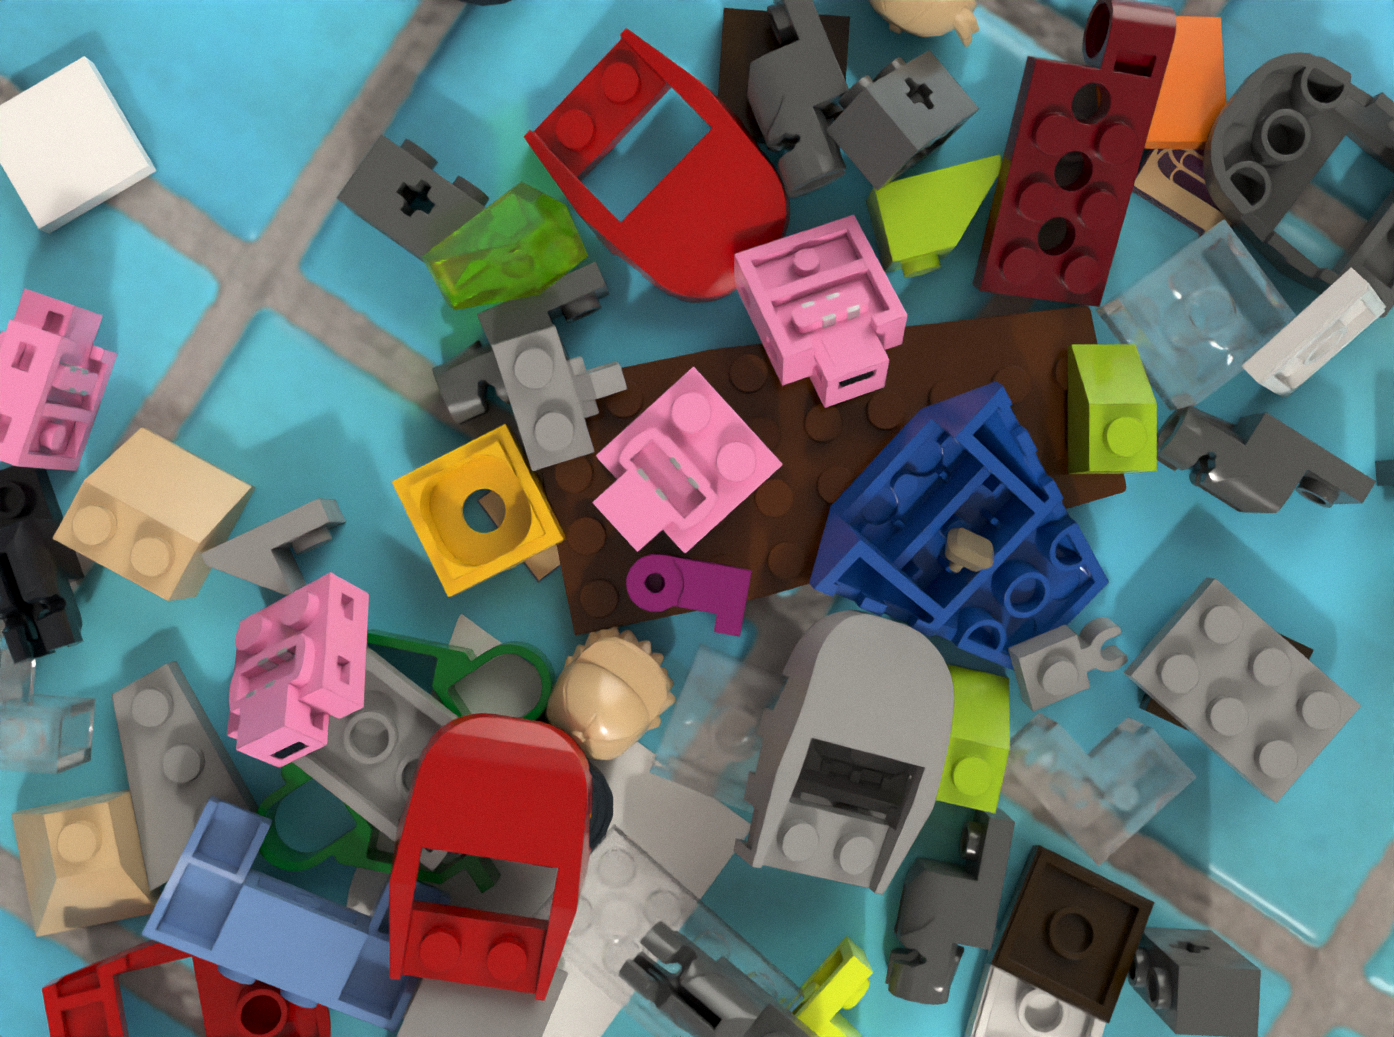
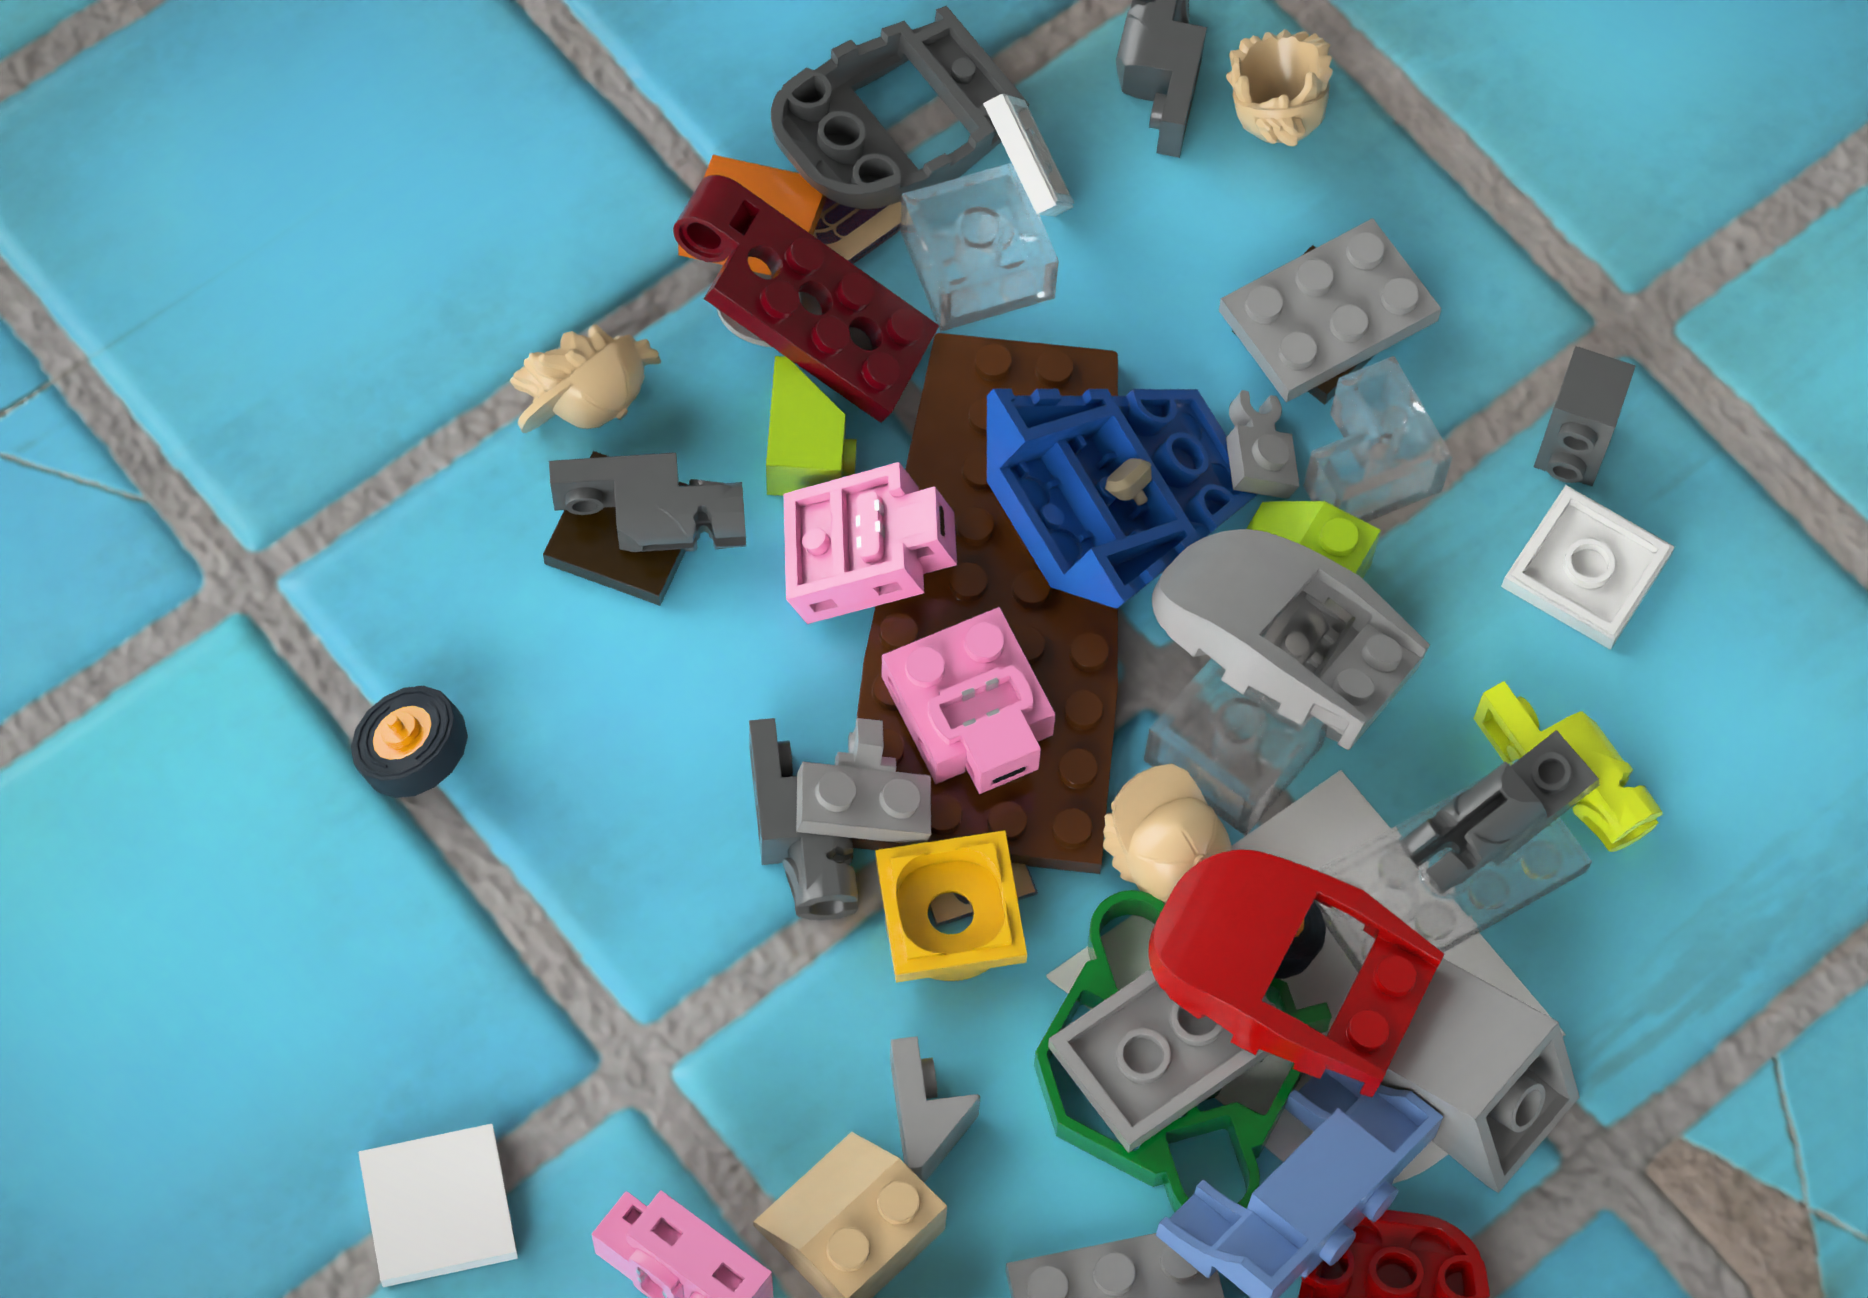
camera: 75 degrees left, 25 degrees down
(297, 669) = (1055, 1096): bright pink piece -> none
(391, 181) = (619, 906): dark grey brick -> none
(507, 250) = (711, 790): clear neon green slope -> none
(671, 580) = (1087, 723): magenta leg -> none
(702, 211) = (737, 623): red slope -> none
(900, 117) = (712, 424): dark grey brick -> none
(949, 907) = (1463, 605): dark grey plate -> none
(1070, 933) = (1518, 515): dark brown tile -> none
(1110, 411) = (1042, 335): lime slope -> none
(1256, 462) = (1124, 241): dark grey plate -> none

